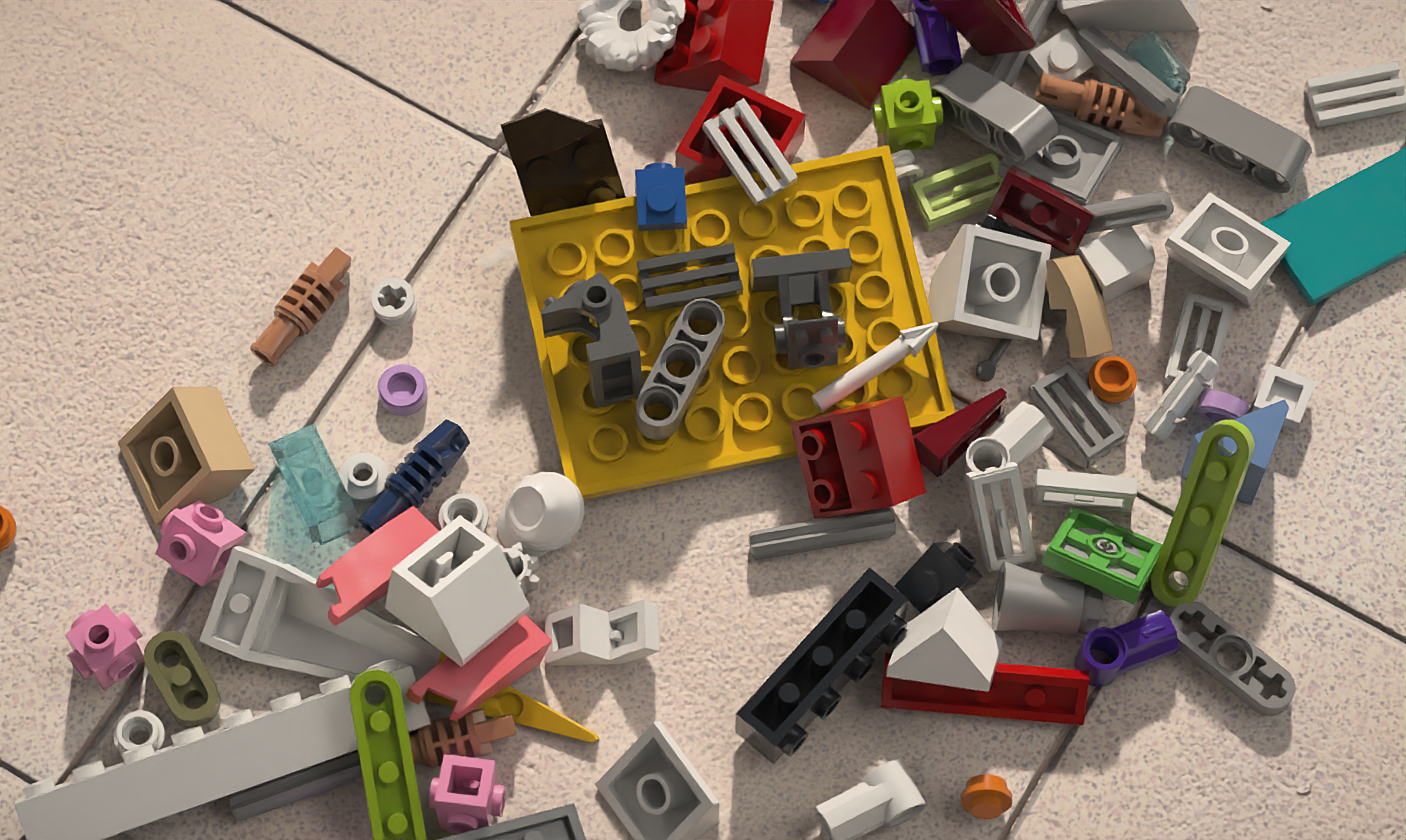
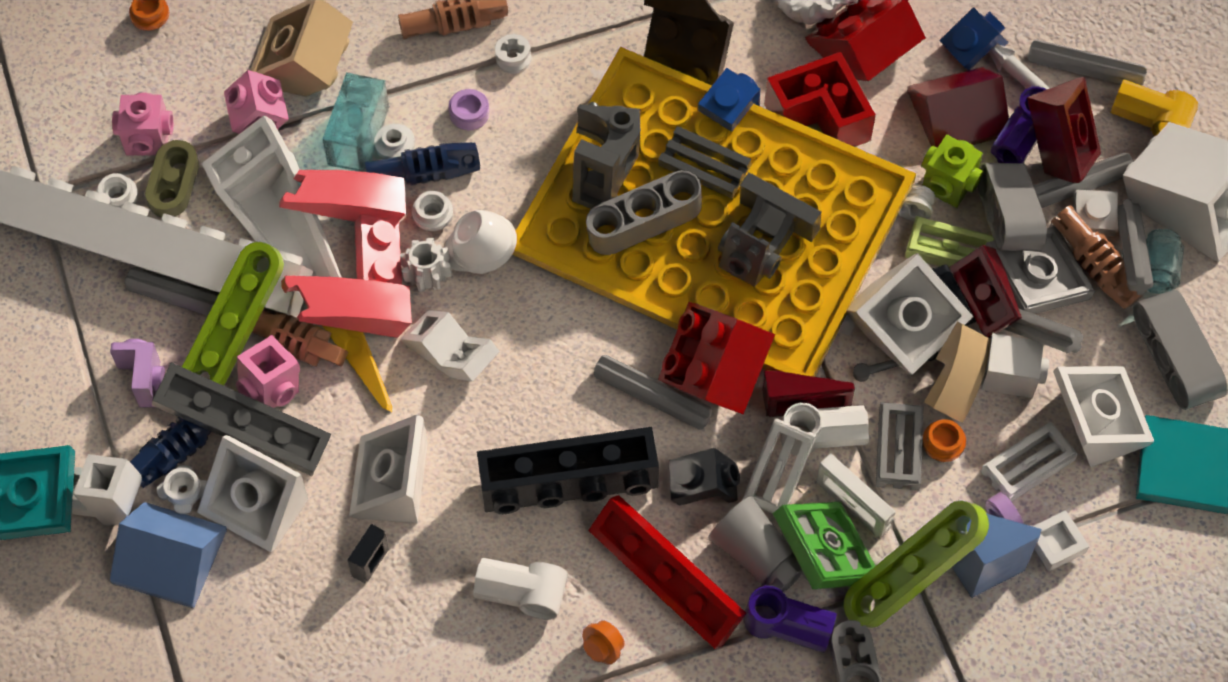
camera: 40 degrees right, 5 degrees down
(457, 591) = (369, 238): white slope -> none
(728, 119) = (816, 79): white tile -> none
(909, 342) = (817, 308): white piece -> none
(947, 646) = (662, 523): white slope -> none
(1181, 395) = (982, 483): white axle -> none

